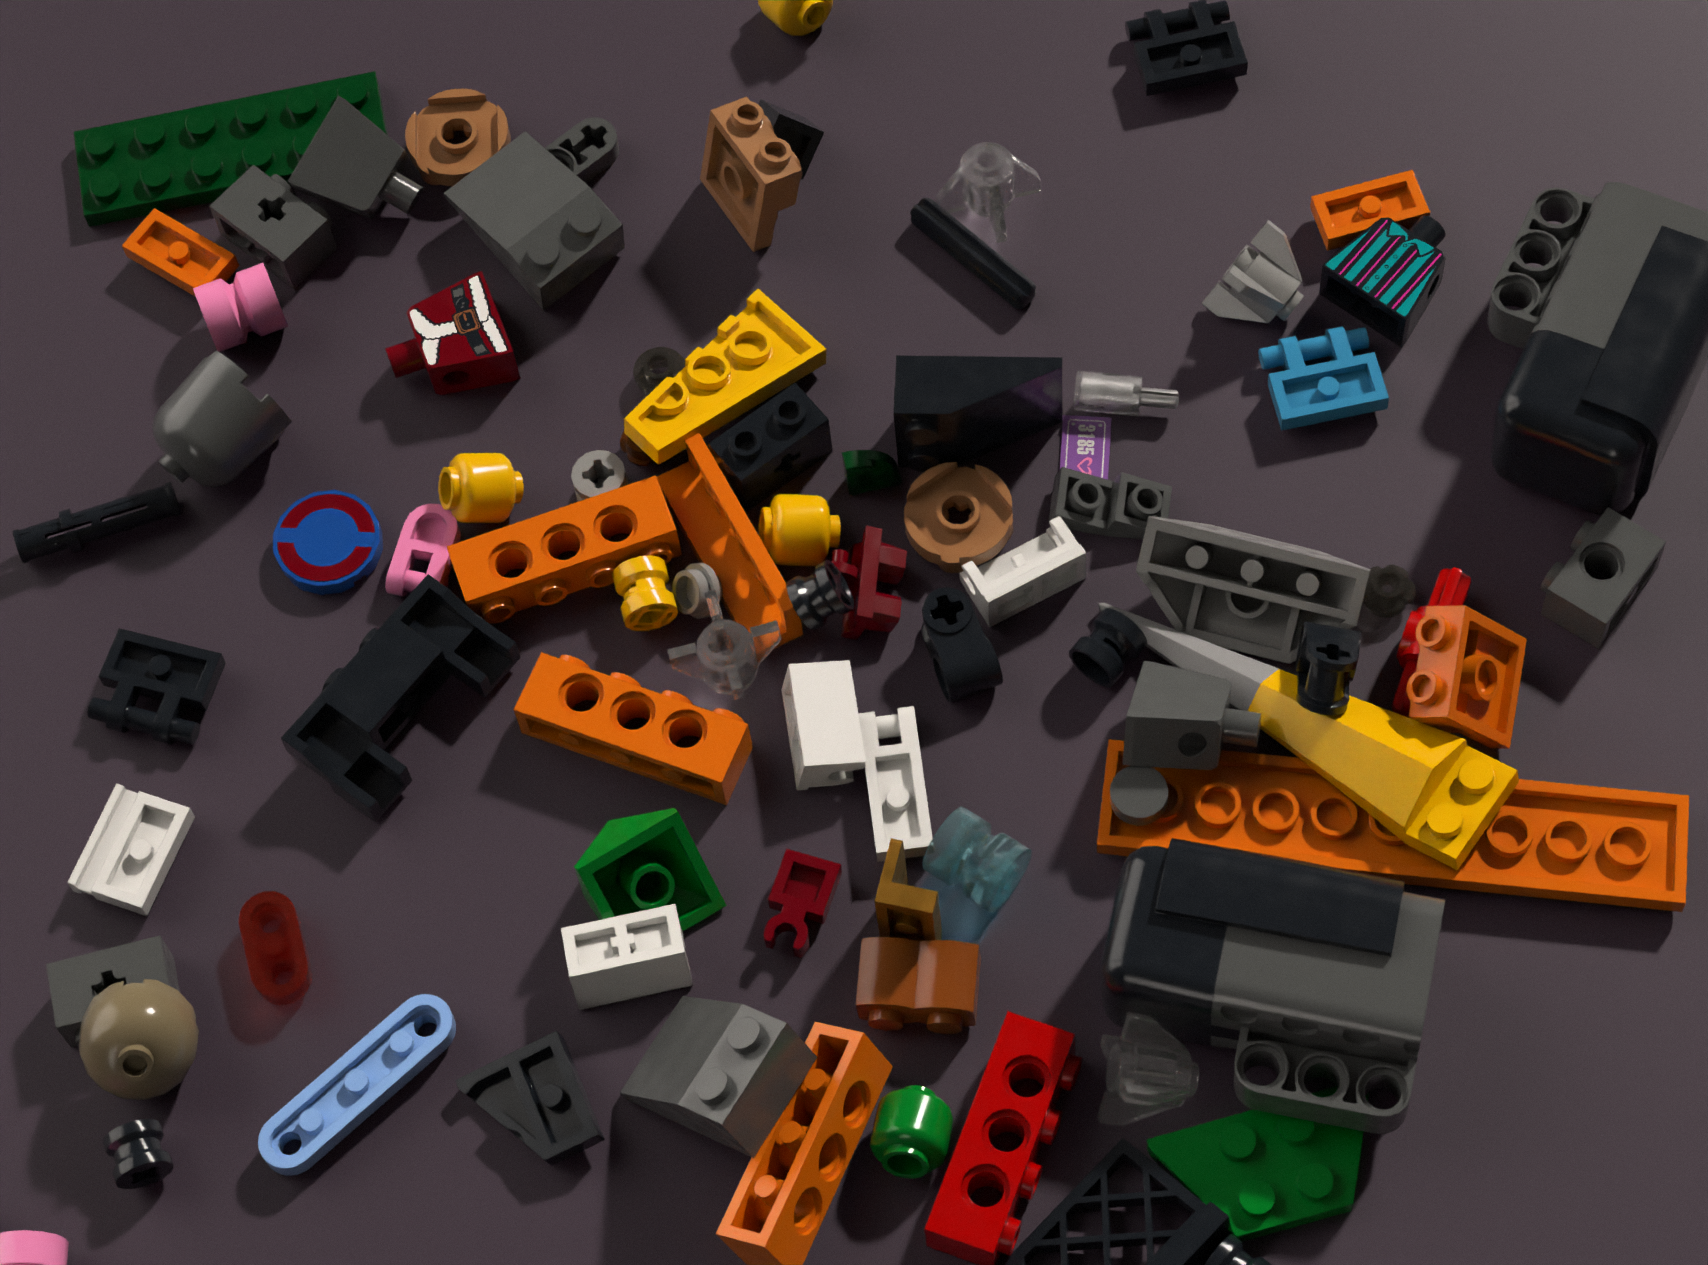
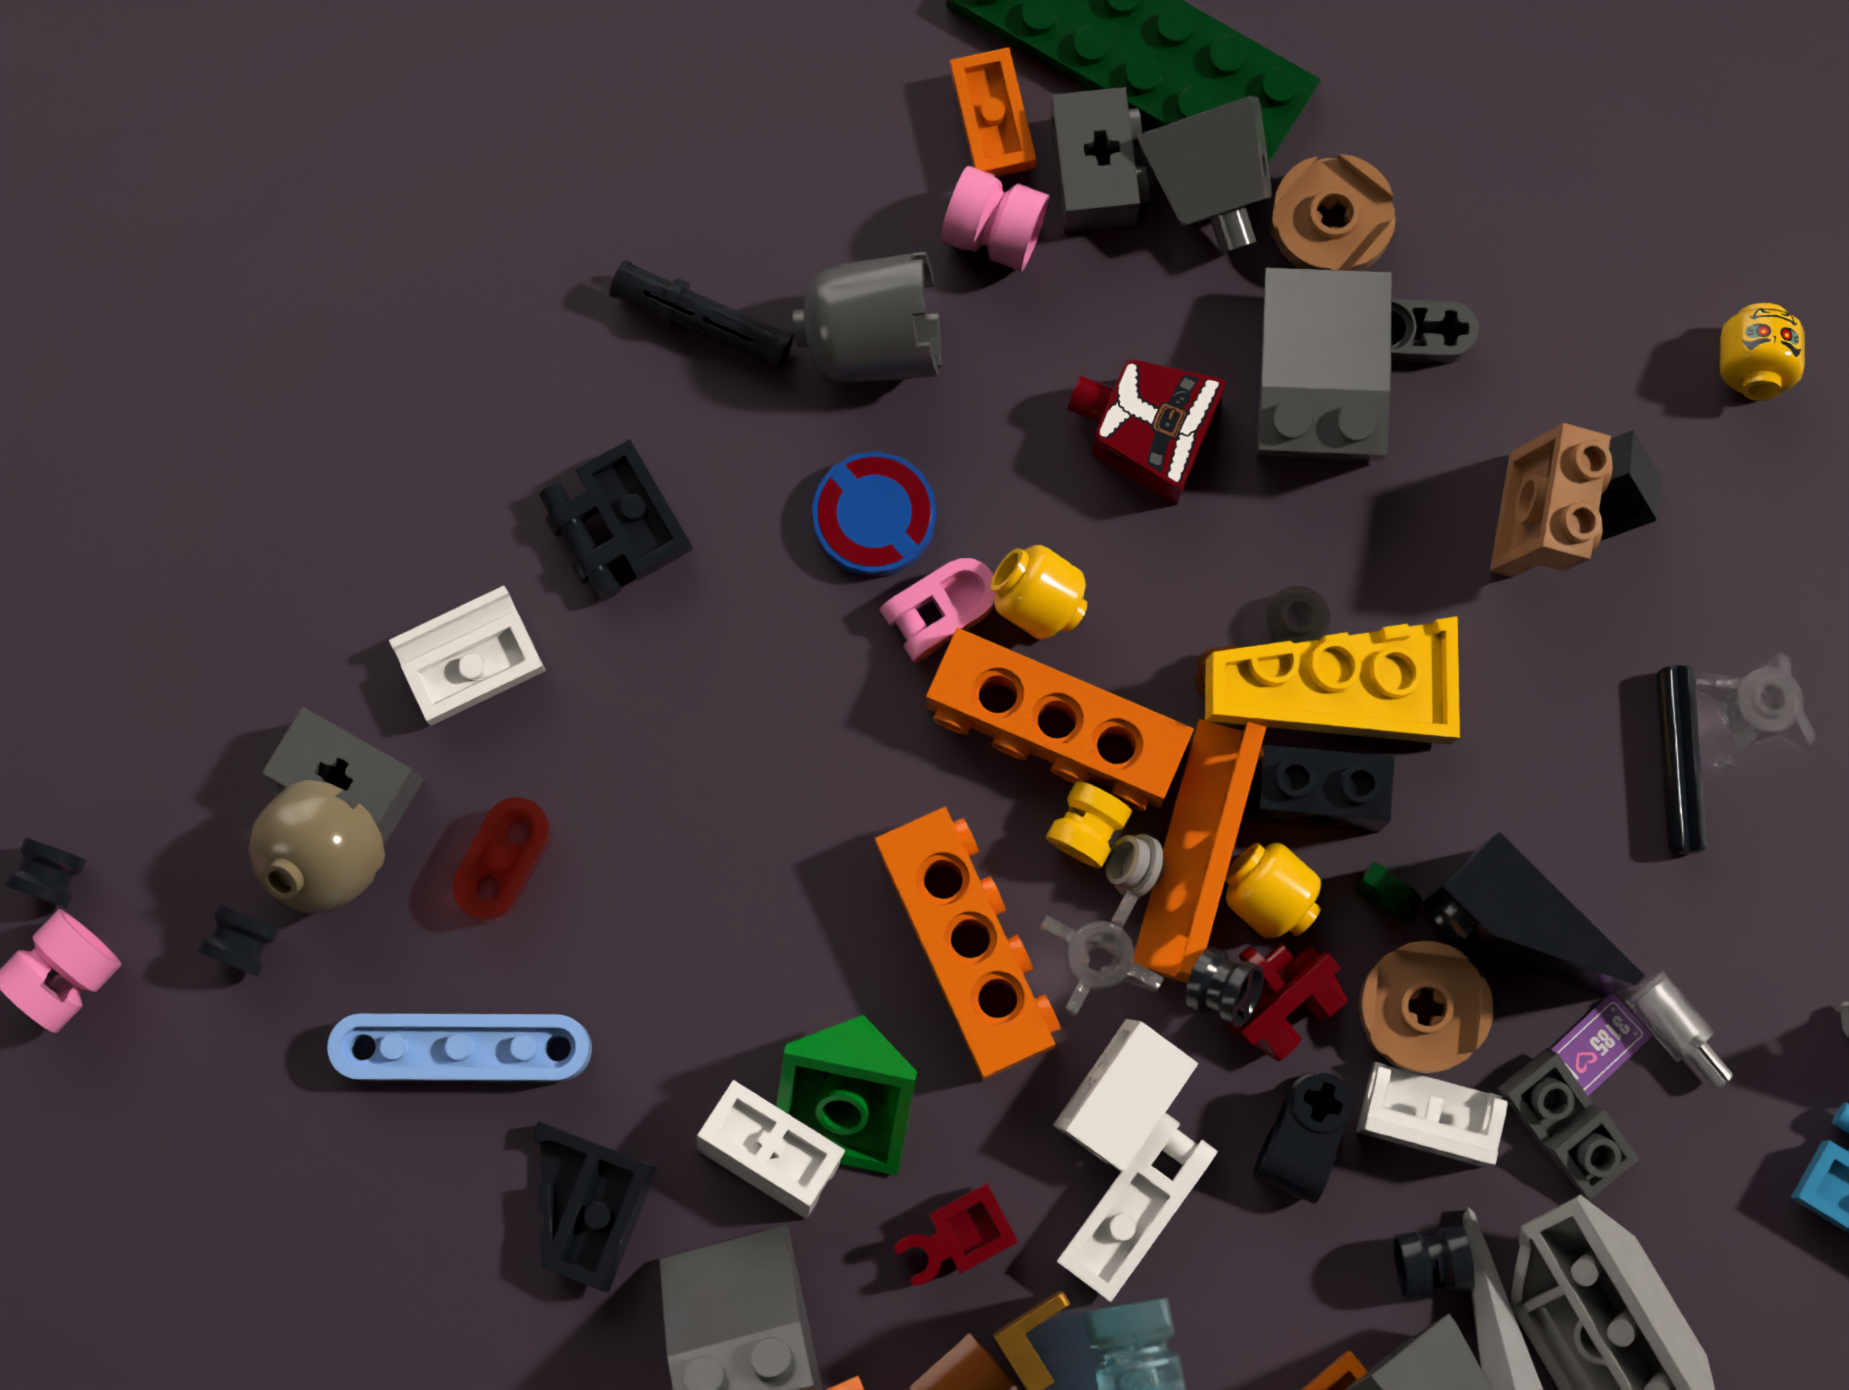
camera: 40 degrees right, 15 degrees up
(387, 685) = (794, 708): black bracket -> none
(599, 465) = (1144, 687): light grey wheel -> none

